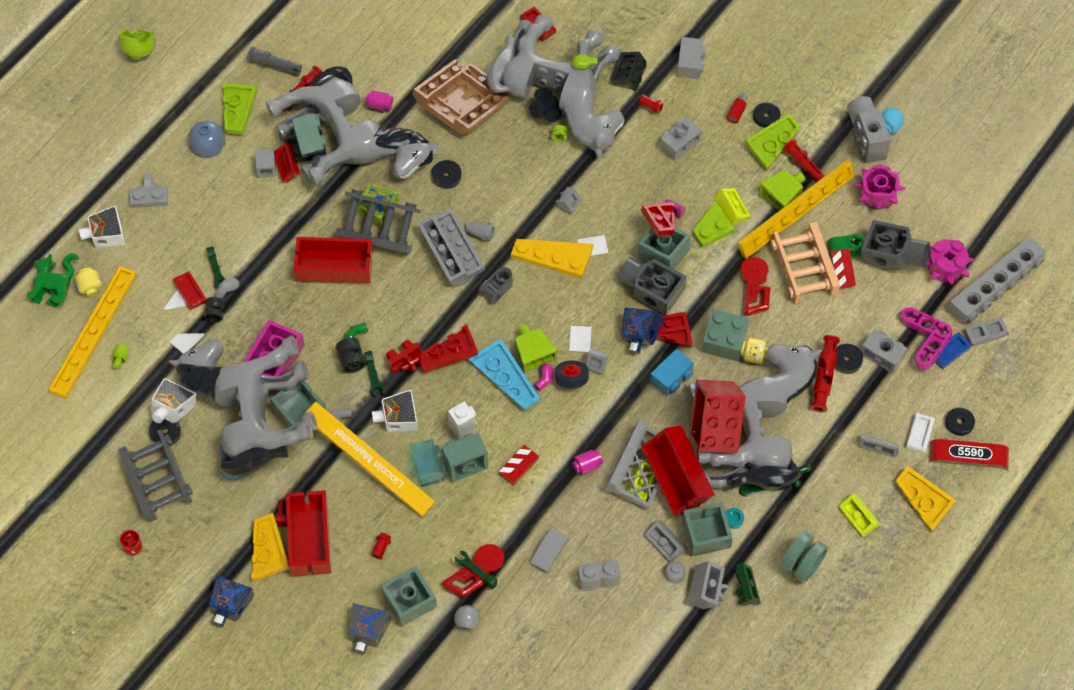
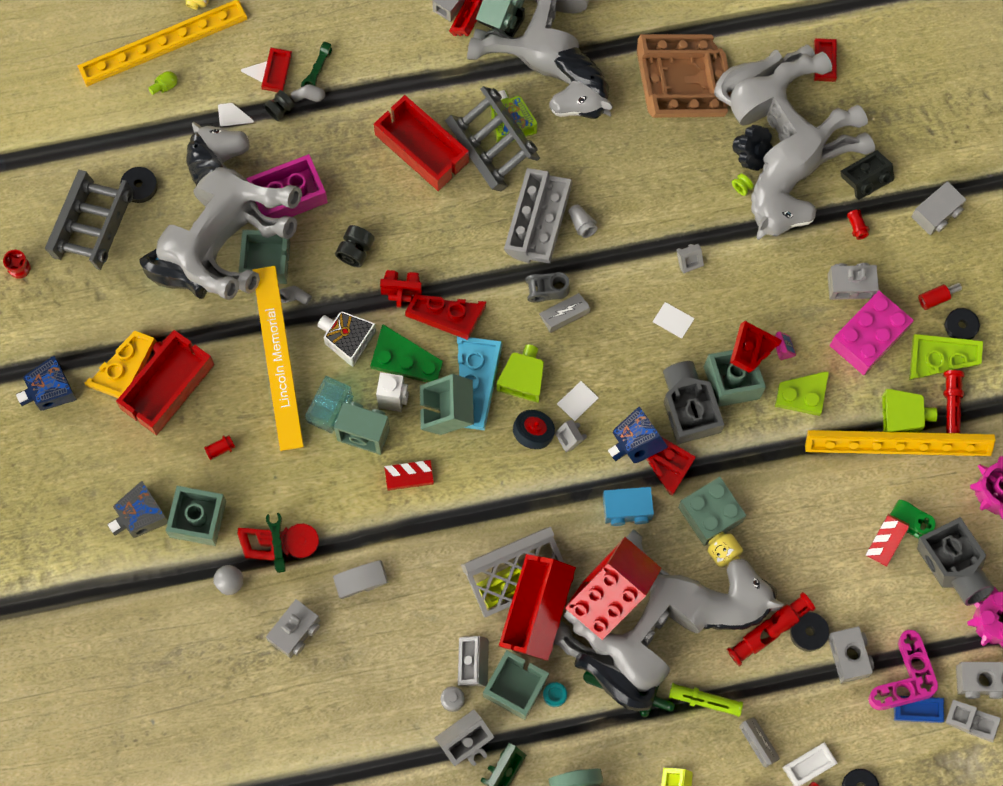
camera: 40 degrees right, 10 degrees up
(171, 402) = (162, 162): torso -> none
(356, 329) = (382, 225): green arm -> none
(373, 373) = (370, 263): dark green piece -> none
(379, 100) = (605, 21): dark pink brick -> none
(441, 398) = (402, 357): none -> green wing
(444, 181) = (599, 150): black piece -> none
(505, 396) = (454, 400): none -> sand green piece
(522, 292) = (565, 312): none -> light grey slope
(536, 612) = (293, 629): none -> light grey brick
(547, 377) = (512, 411): dark pink arm -> none
(553, 255) = (631, 305): yellow wing -> none
(583, 61) = (820, 132): lime cylinder -> none
(587, 462) = (470, 525): dark pink brick -> none
(604, 575) = (385, 645): light grey brick -> none
(720, 159) = (871, 333): none -> dark pink brick
(732, 205) = (841, 388): neon yellow slope -> none
(755, 273) = (799, 472): red piece -> none
(806, 454) = (704, 699): none -> lime pin
(818, 251) = (871, 523): light nougat fence -> none

